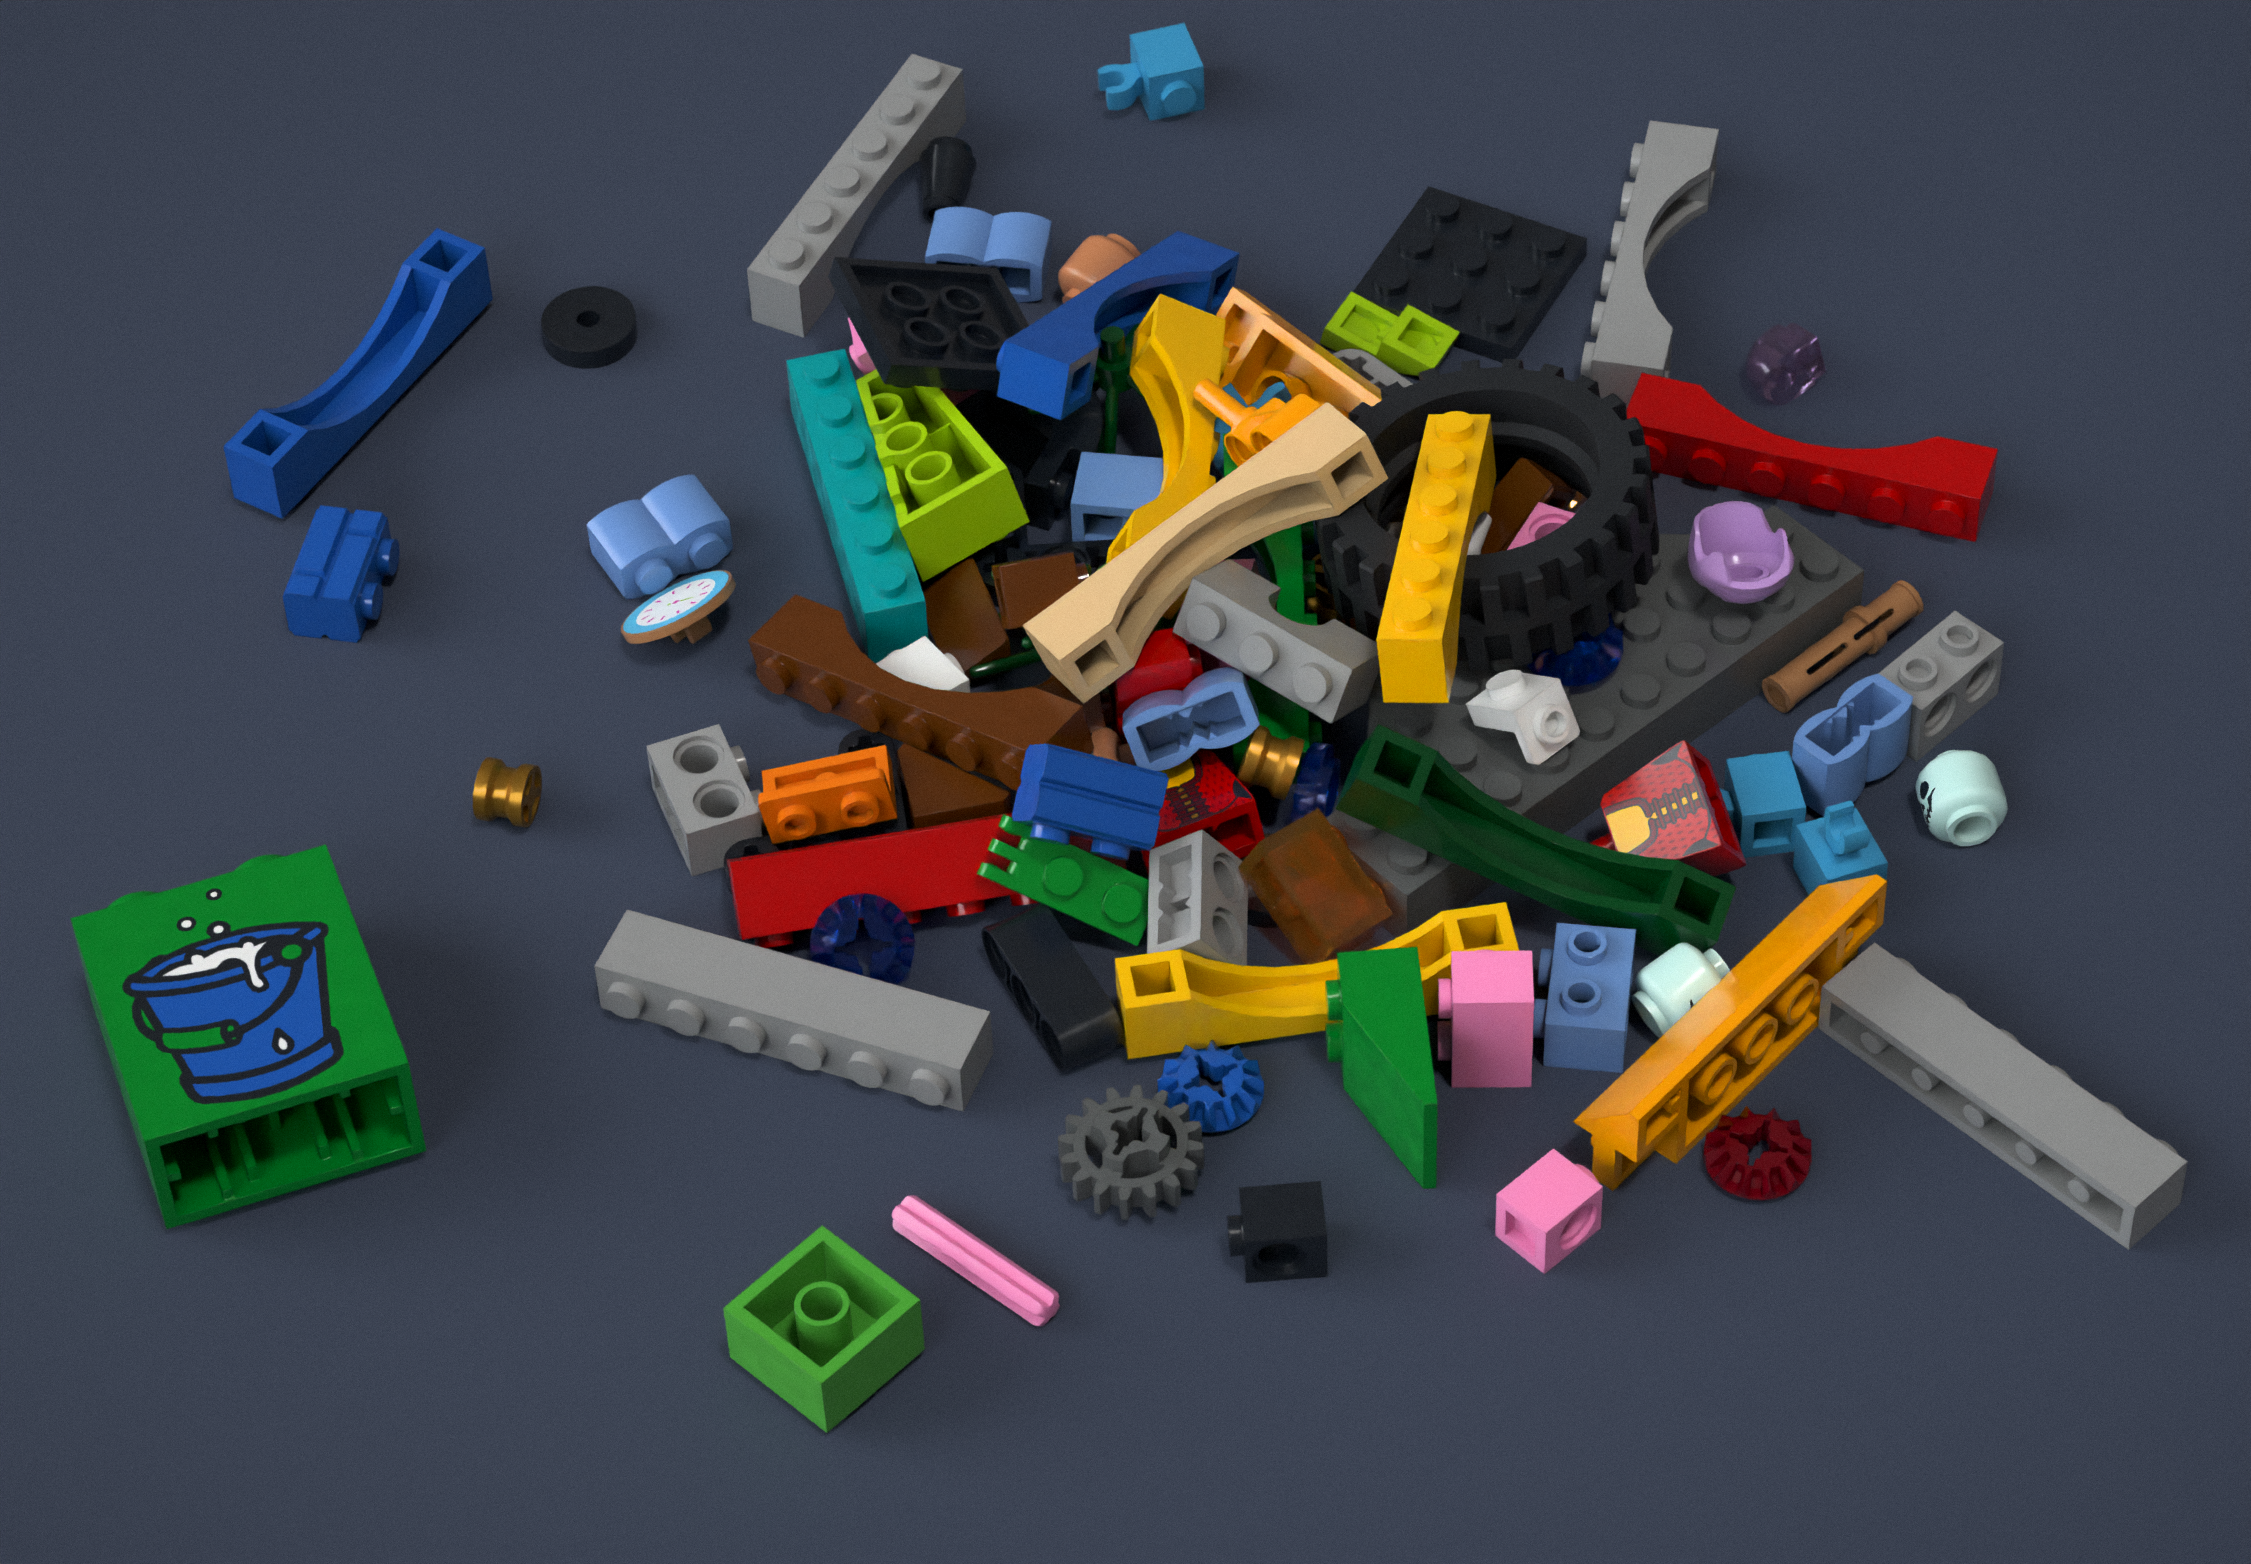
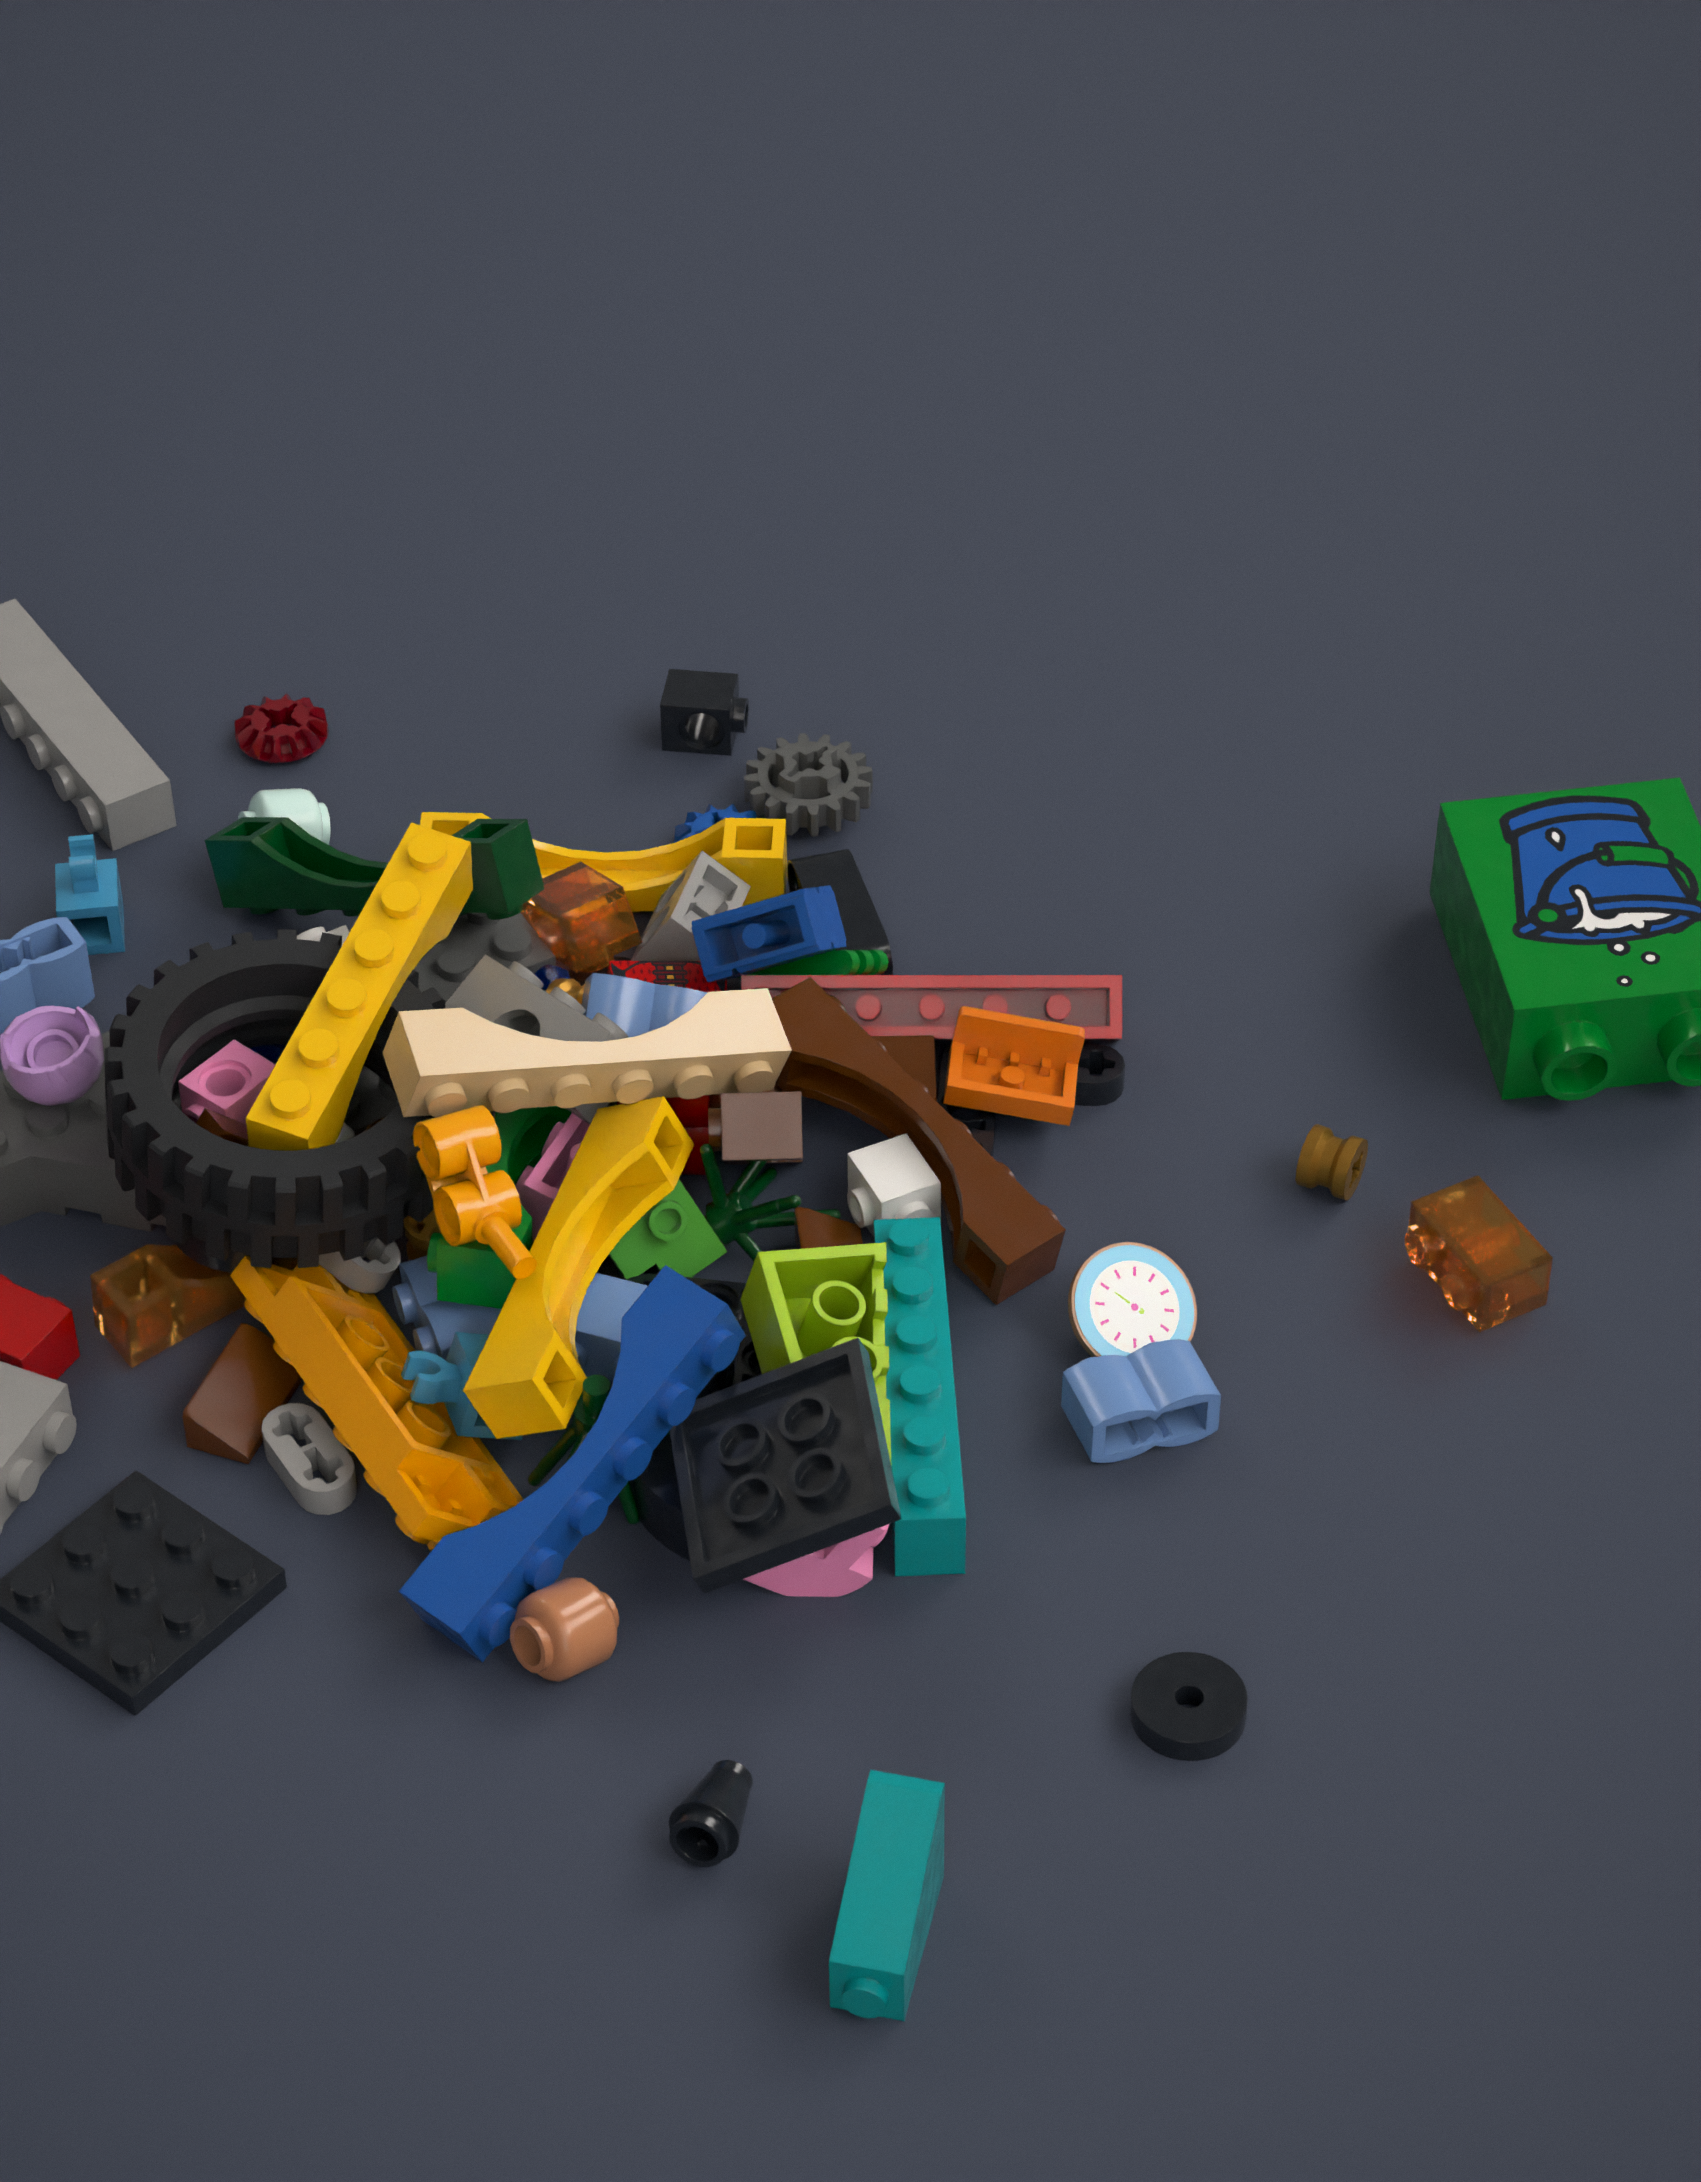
camera: 170 degrees left, 5 degrees down
(293, 446) = (1395, 1708): blue arch -> none
(340, 574) = (1499, 1416): blue brick -> none
(363, 703) = (1478, 1253): none -> clear orange brick
(704, 795) = (1131, 1124): light grey brick -> none
(792, 126) = (888, 1896): none -> teal slope
(792, 270) = (742, 1873): light grey arch -> none
(795, 1010) = (1082, 931): light grey brick -> none
(824, 1328) = (1100, 679): bright green brick -> none
(883, 921) = (1006, 960): clear blue gear -> none
(975, 1260) = (962, 746): bright pink axle -> none
(1008, 241) = (689, 1689): medium blue brick -> none
(1161, 72) = (392, 1916): dark azure brick -> none
(1386, 1051) = (562, 775): green slope -> none
(1402, 343) = (258, 1514): lime slope -> none
(1489, 1019) = (466, 774): bright pink brick -> none
(1549, 1210) = (475, 696): bright pink brick -> none
(1587, 997) = (371, 817): medium blue brick -> none
(1673, 813) = (220, 905): torso -> none
(1731, 1033) = (299, 734): light orange slope -> none
(1763, 802) = (126, 956): dark azure brick -> none

